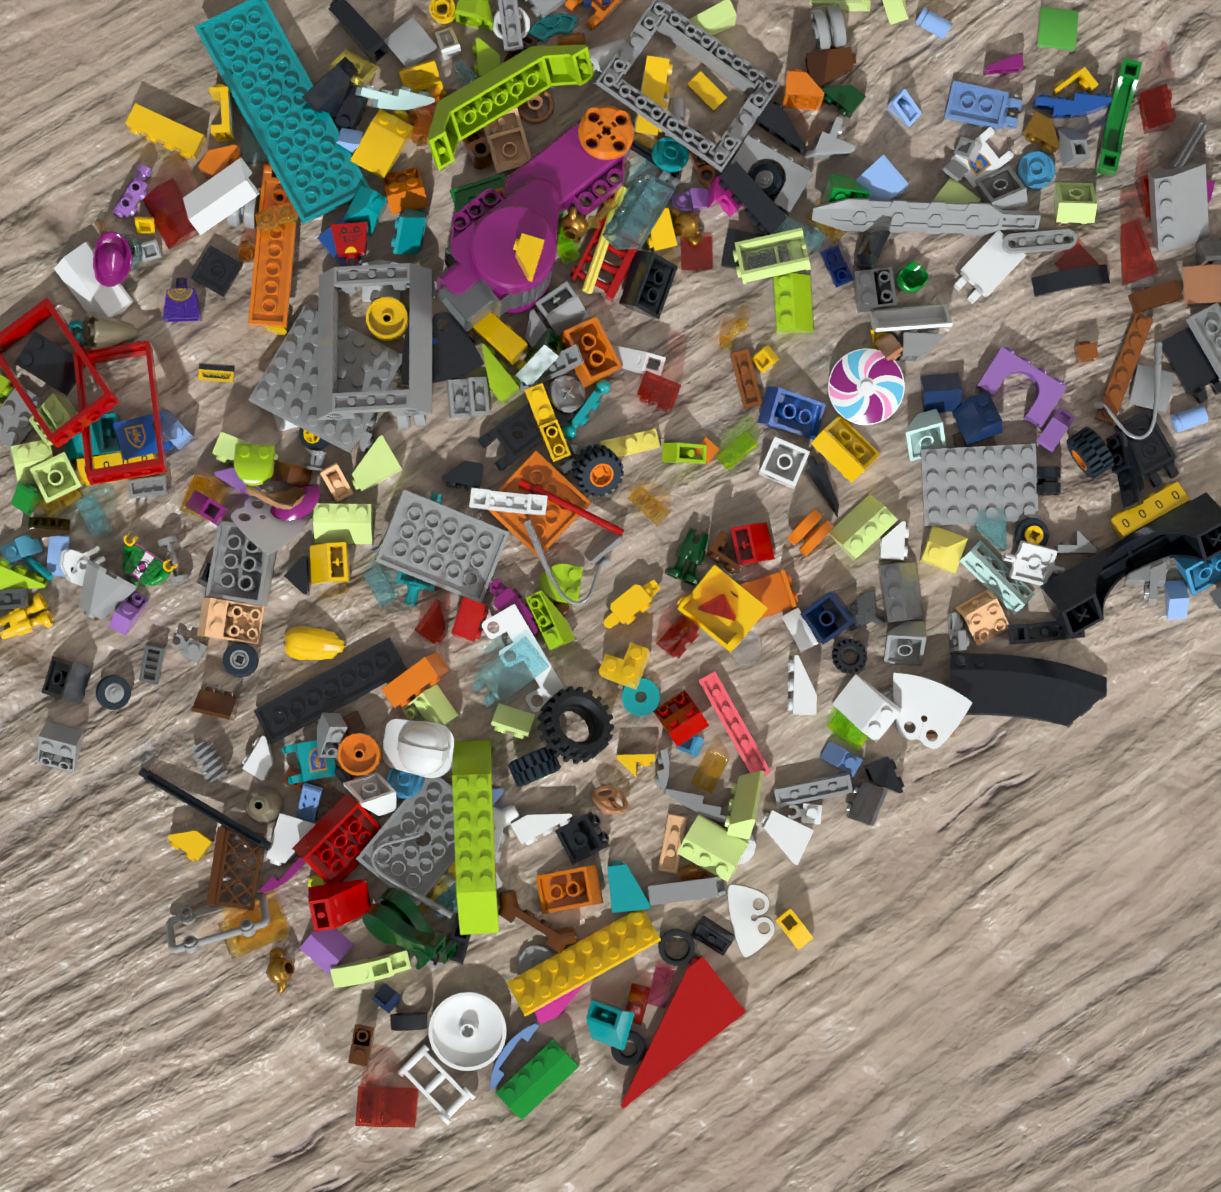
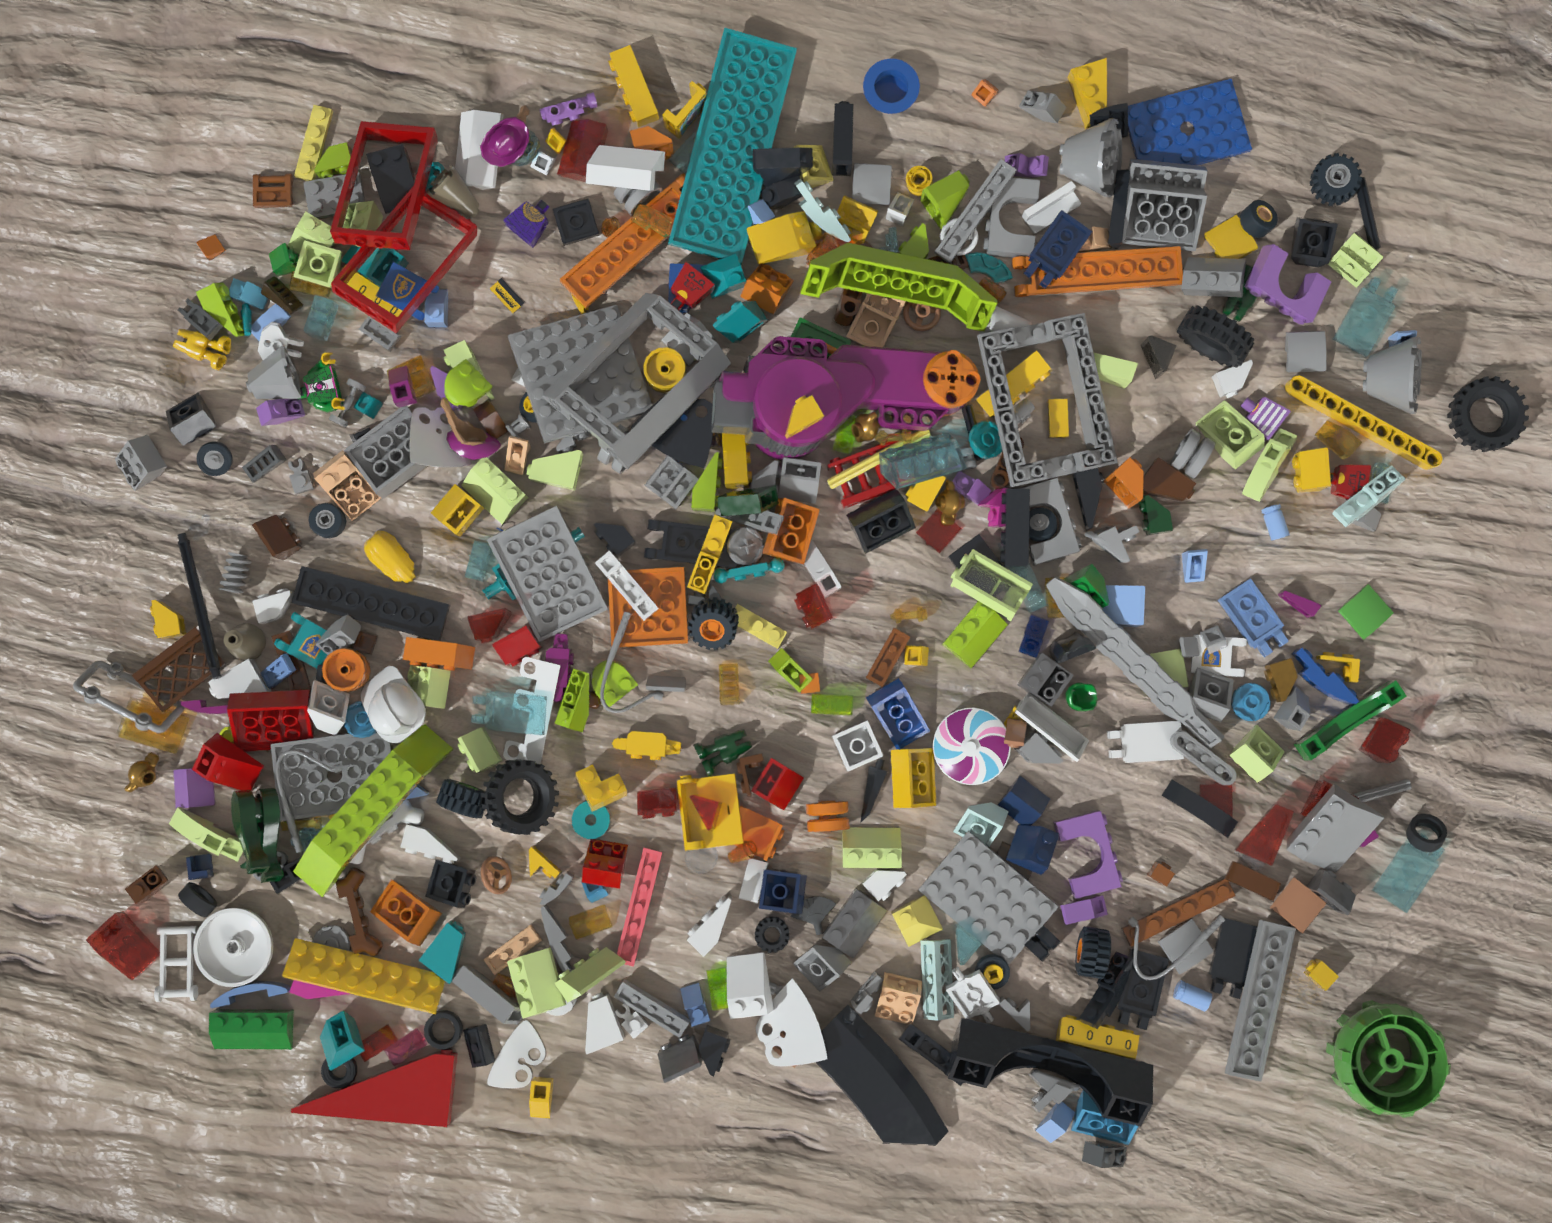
camera: 50 degrees right, 0 degrees up
(189, 548) = (368, 405): none -> teal slope
(299, 575) = (426, 499): black slope -> none
(537, 489) = (657, 597): red bar -> none
(773, 616) = (743, 852): none -> clear orange cone

